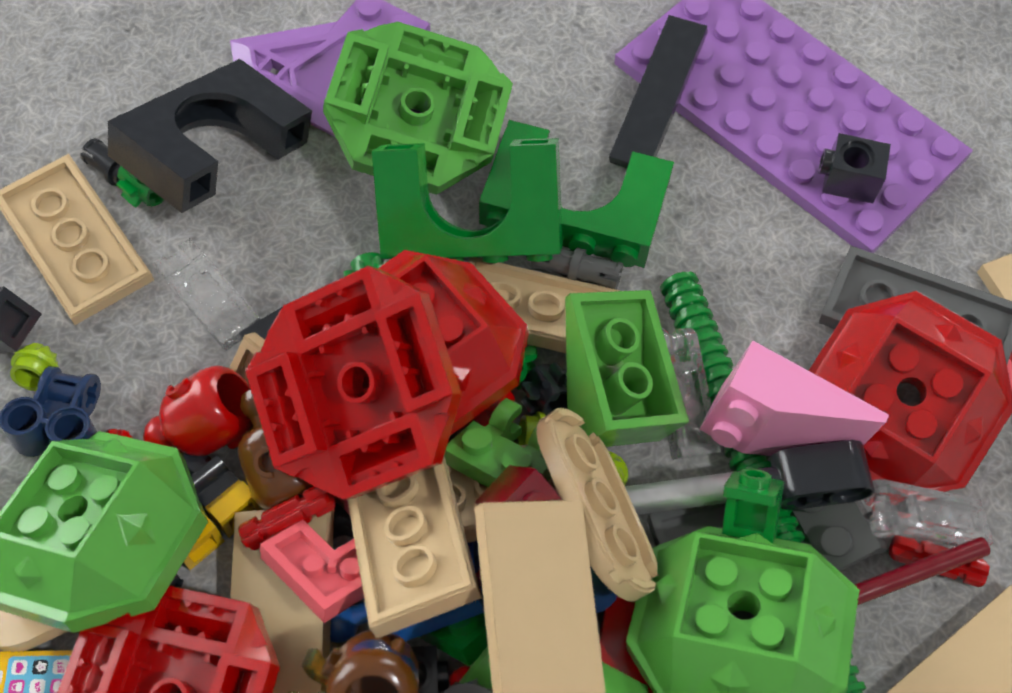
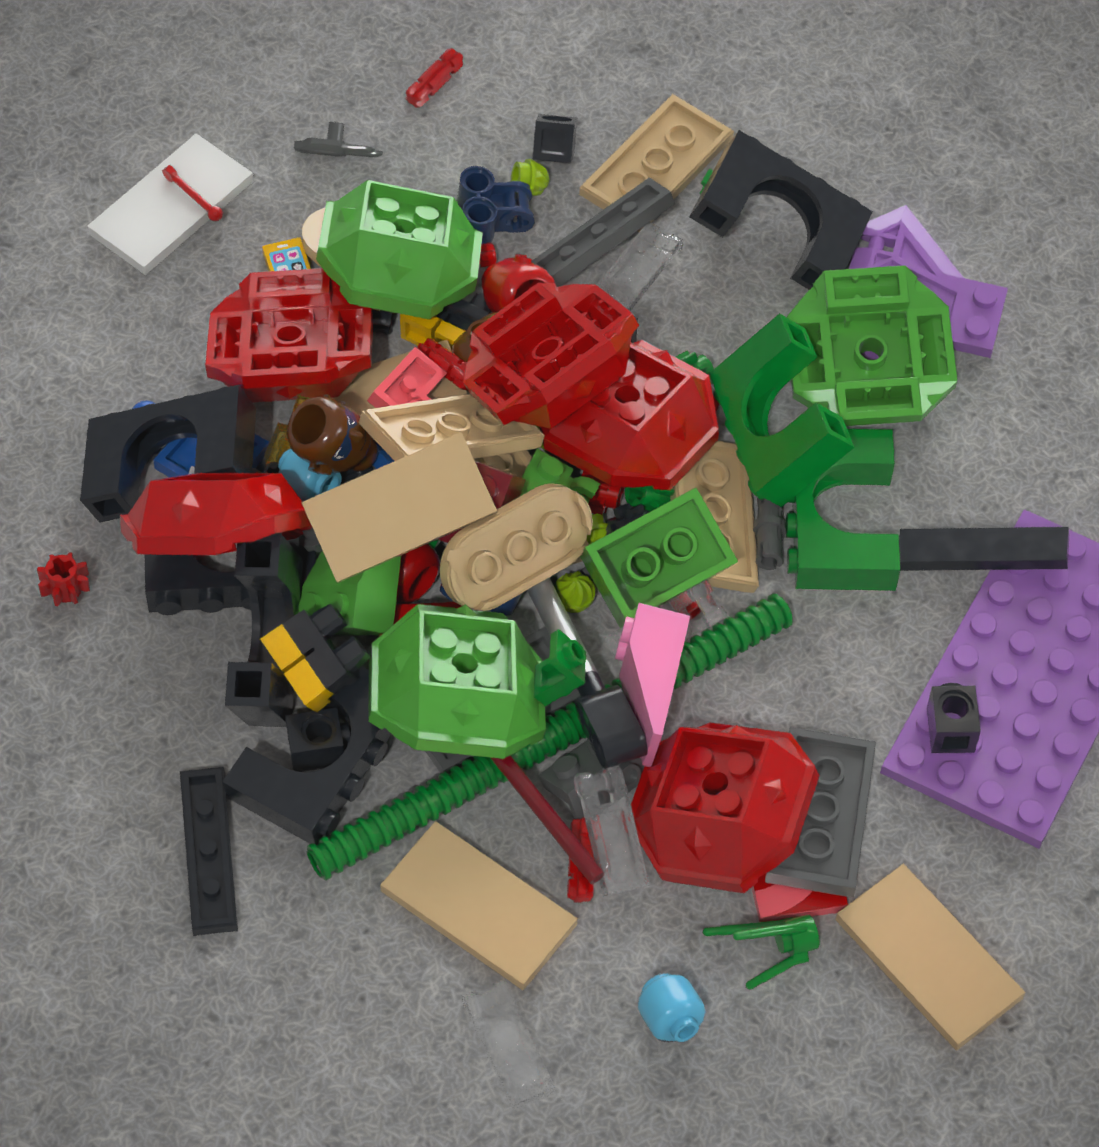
camera: 75 degrees right, 5 degrees down
(150, 308) = (605, 231): none -> dark grey plate

